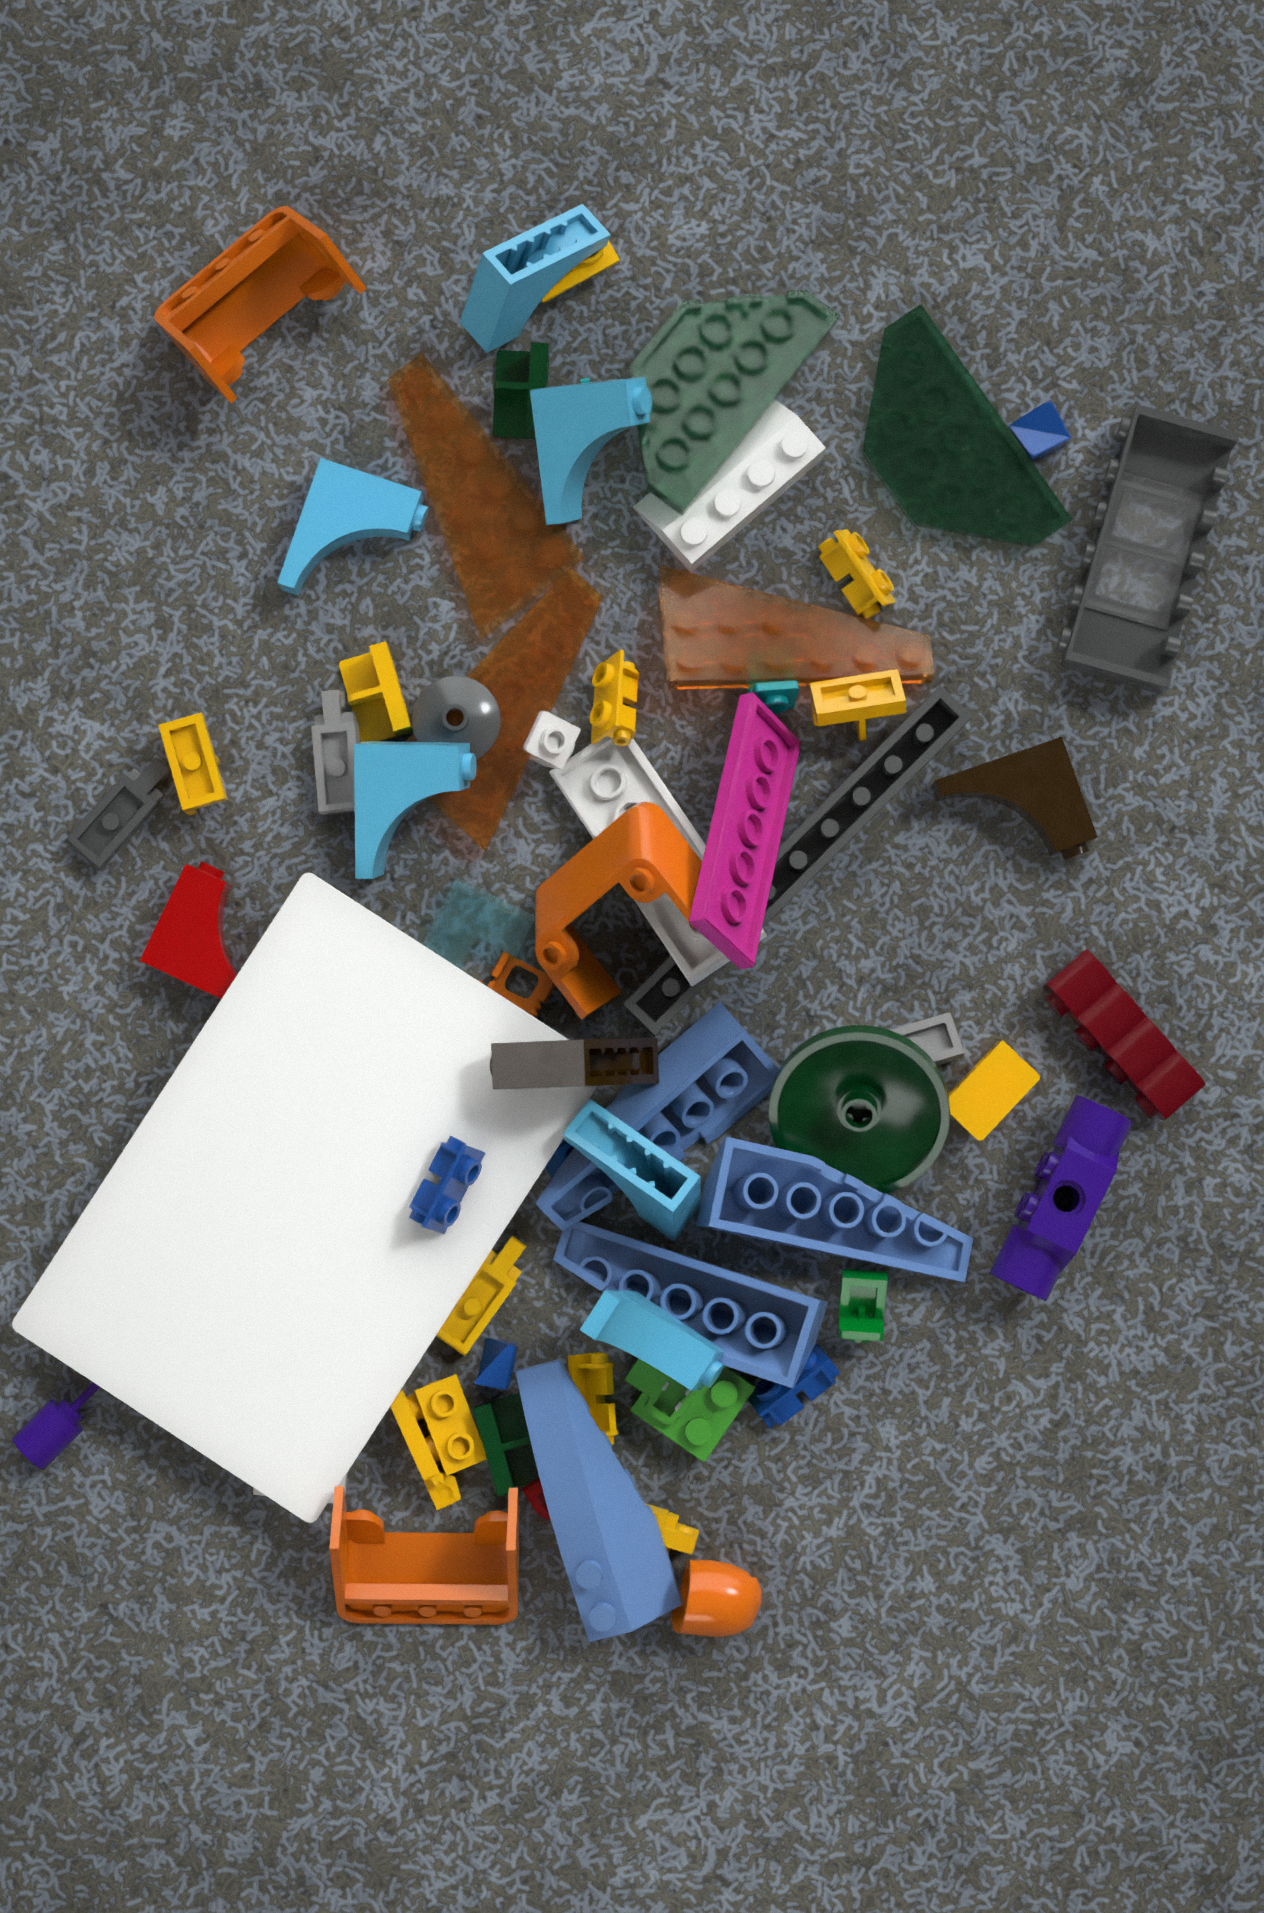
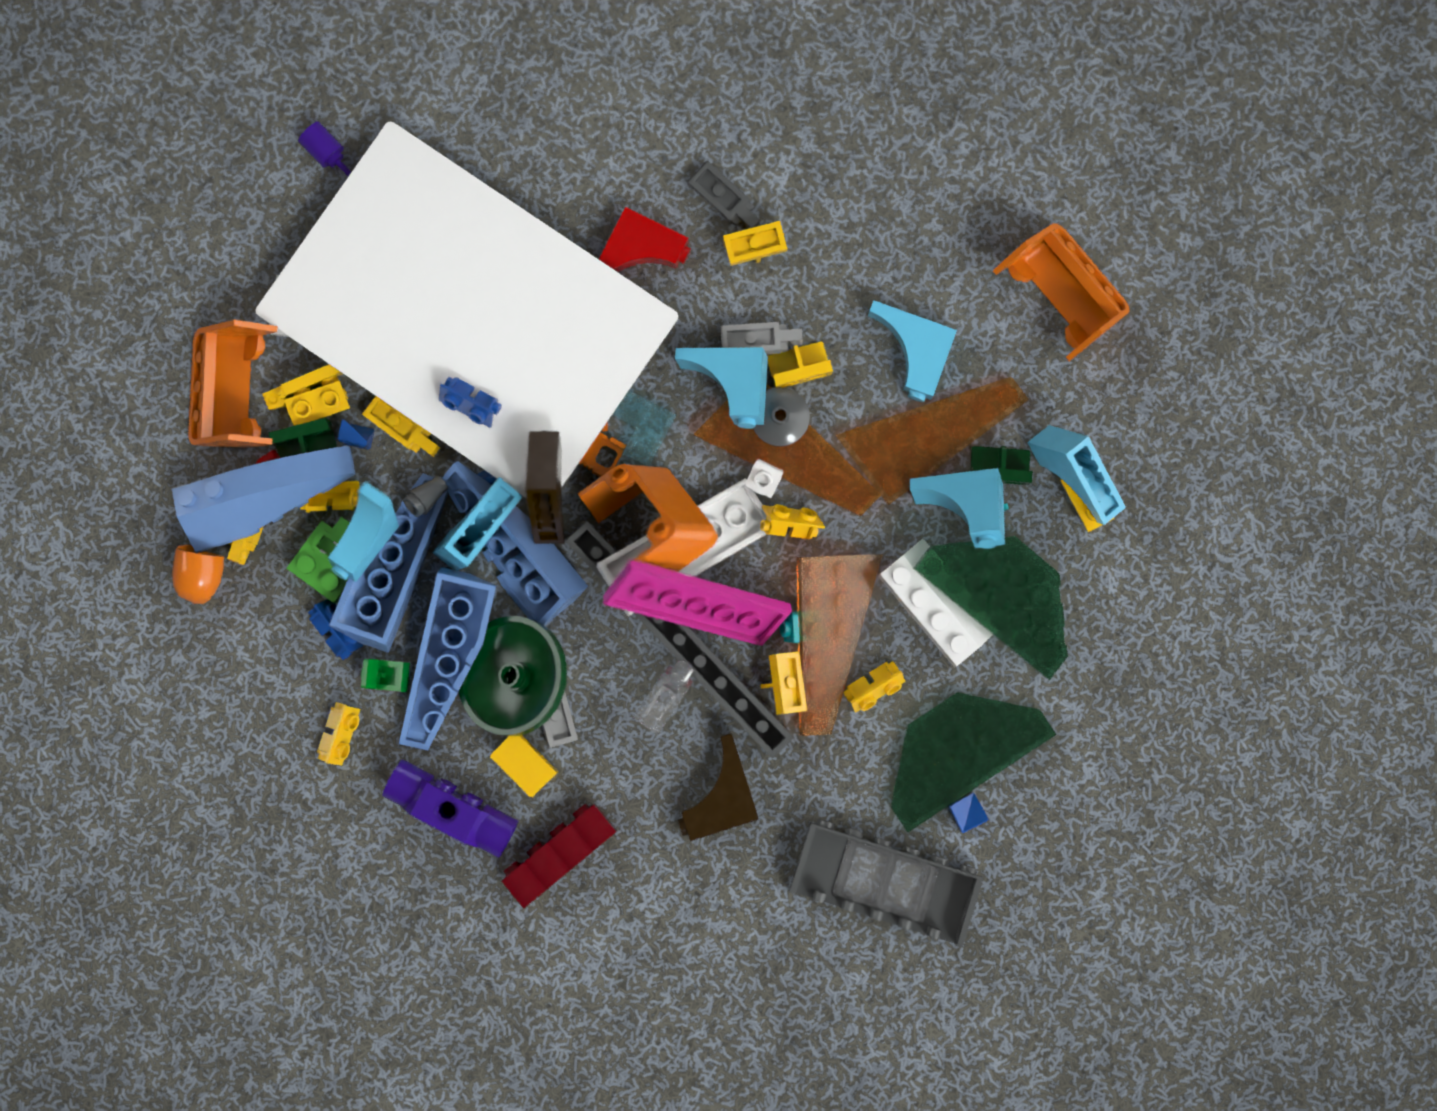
camera: 90 degrees right, 0 degrees up
(591, 1253) = (423, 497): none -> dark grey cone
(885, 878) = (665, 696): none -> clear torso
(972, 1379) = (336, 747): none -> yellow hinge

